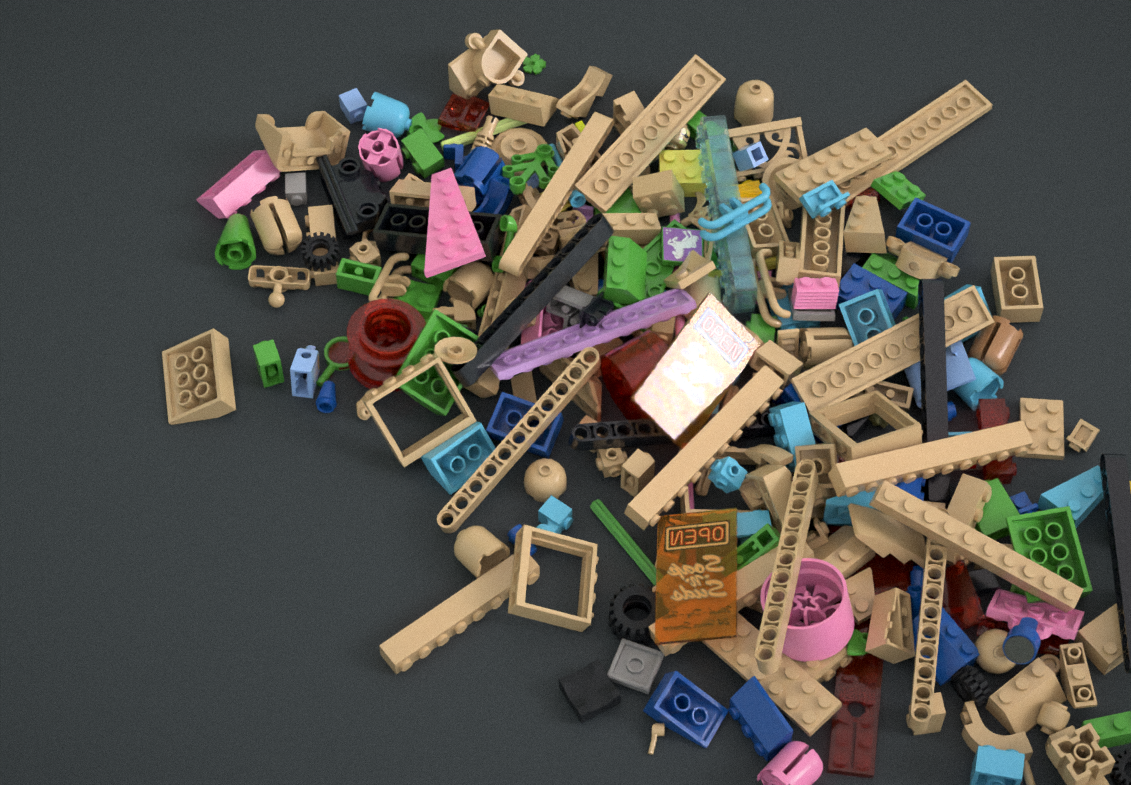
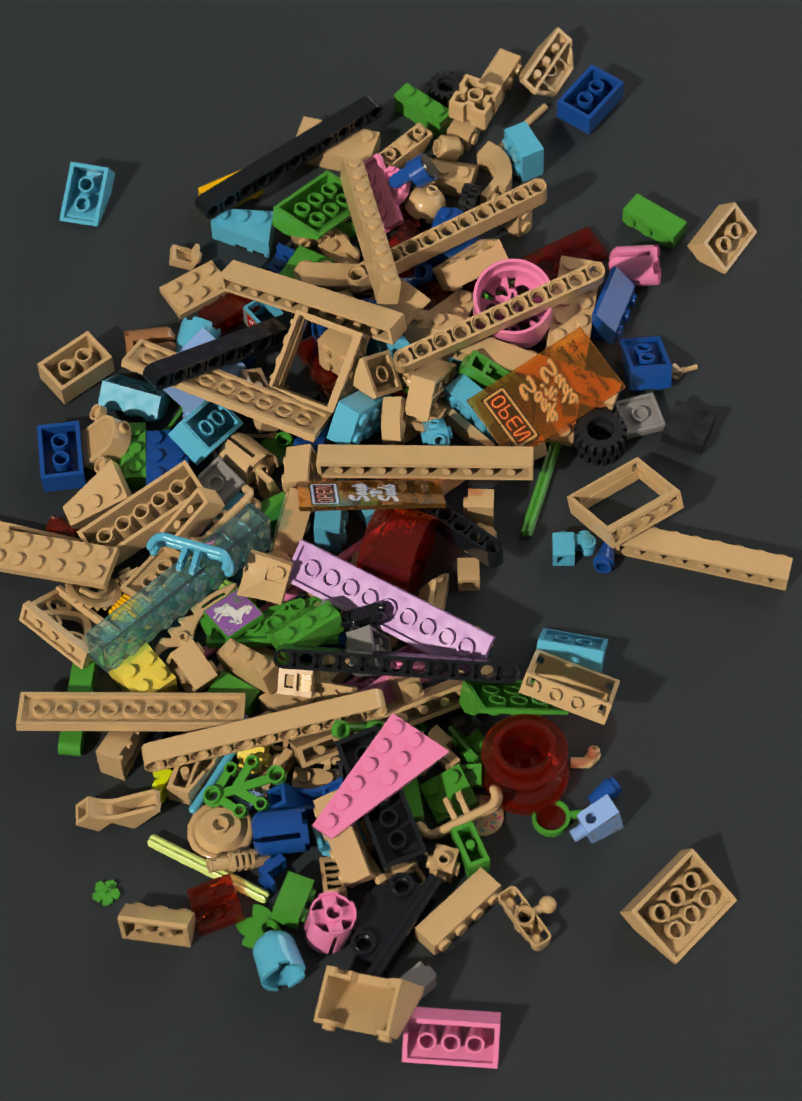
camera: 125 degrees left, 0 degrees up
(236, 244) = (516, 984): bright green cone -> none
(268, 363) = (619, 851): bright green brick -> none
(277, 222) = (476, 956): tan cylinder -> none
(323, 261) = (481, 877): black tyre -> none
(353, 105) = (283, 1005): light blue brick -> none
(455, 350) = (495, 671): tan dish -> none
(479, 550) = (645, 570): tan cylinder -> none
(496, 58) = (144, 899): tan piece -> none
(509, 413) = (506, 616): blue brick -> none
(517, 450) = (530, 596): tan beam -> none
(522, 104) = (167, 852): tan slope -> none
(545, 479) = (537, 579): tan cylinder -> none
(750, 156) = (93, 614): light blue brick -> none
(754, 103) = (22, 668): tan cylinder -> none
(815, 293) = (213, 474): bright pink brick -> none
(823, 199) = (105, 527): medium azure bracket -> none
(897, 189) = (35, 506): bright green plate -> none

